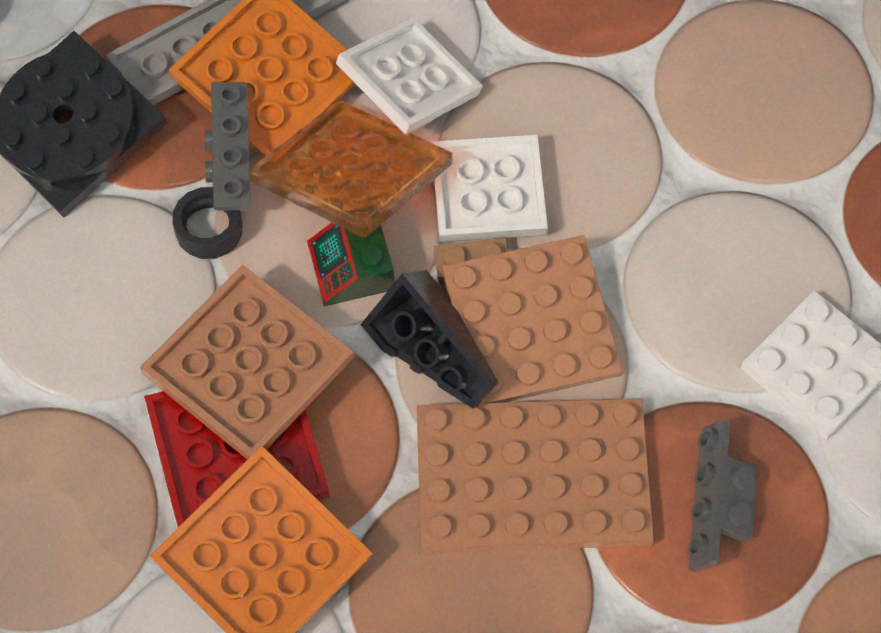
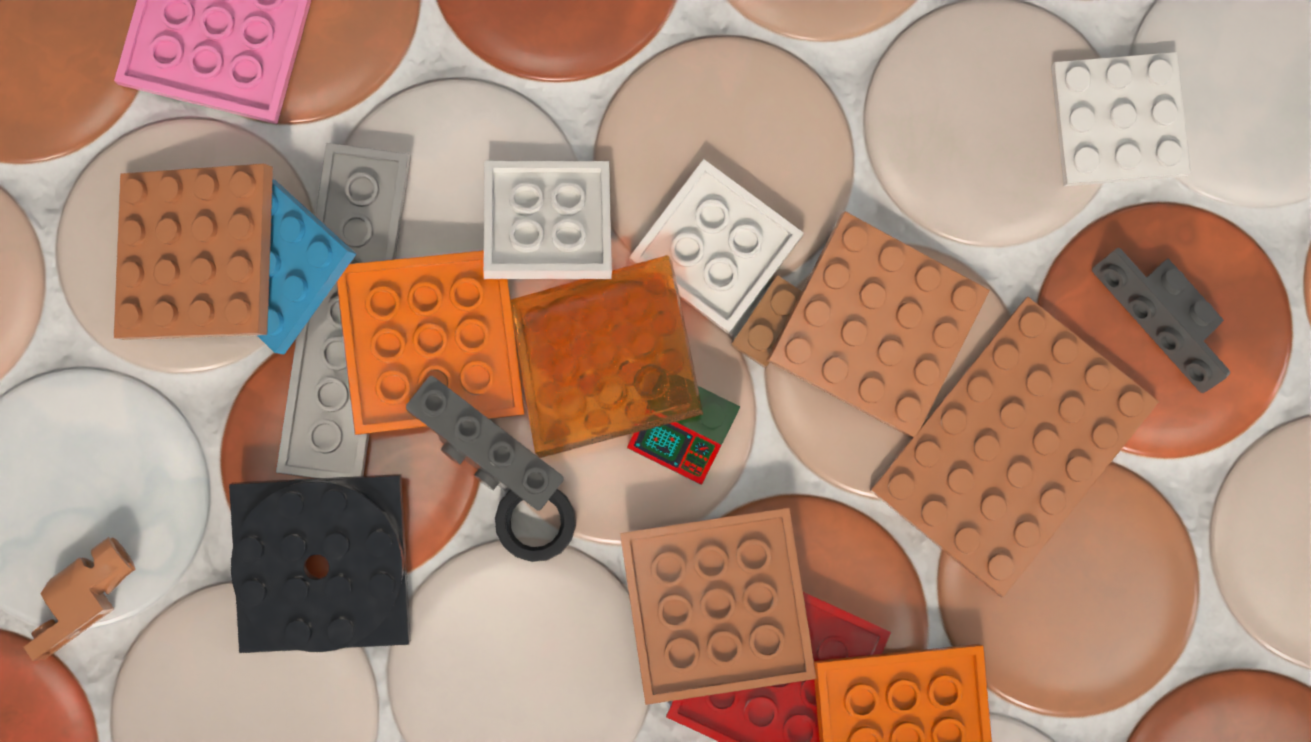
camera: 50 degrees left, 20 degrees up
(429, 335) = (817, 422): black wedge -> none

